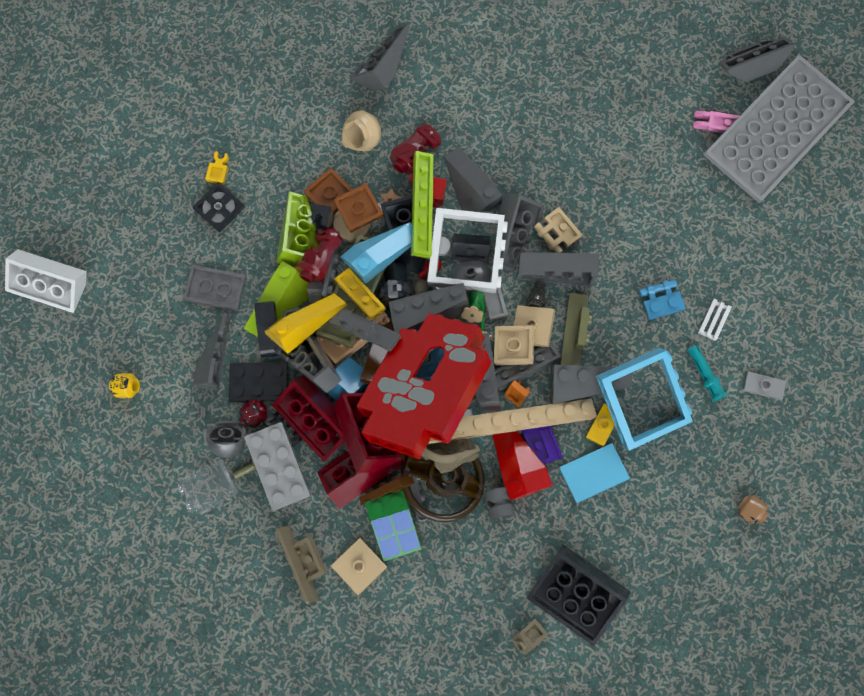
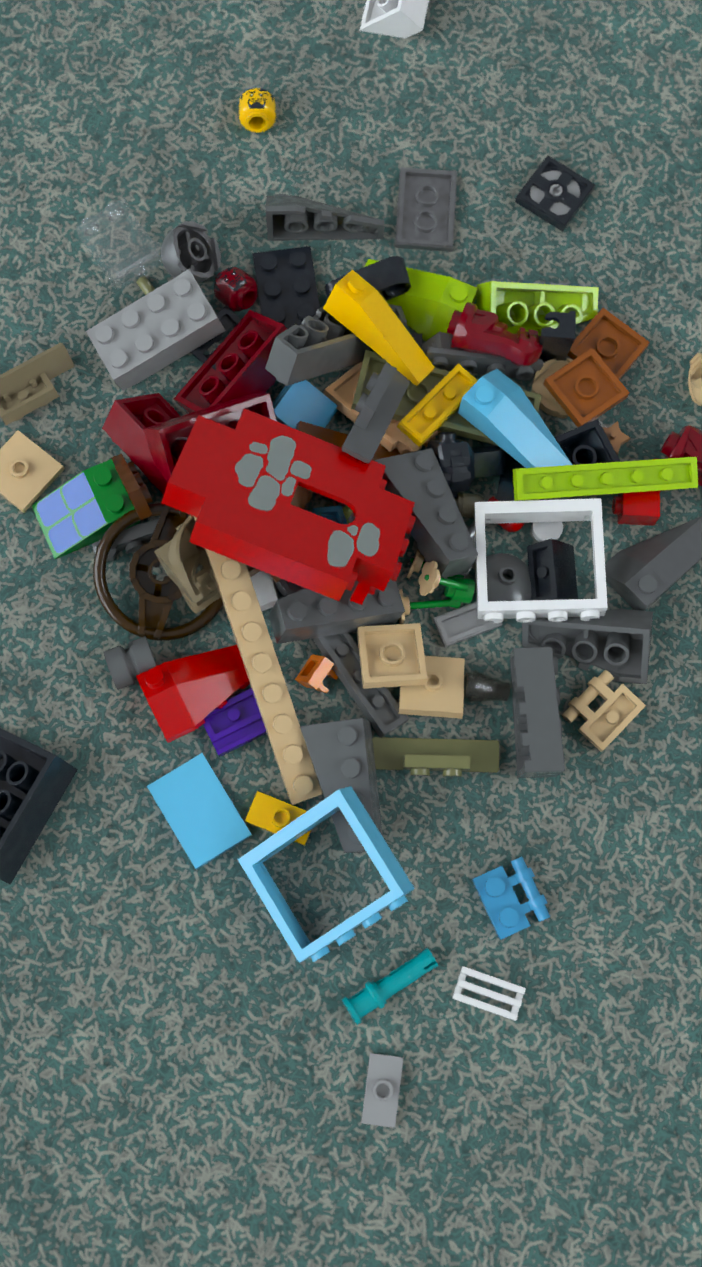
camera: 75 degrees right, 0 degrees up
(217, 171) = (613, 182): yellow plate -> none
(753, 510) = (161, 1081): medium nougat head -> none

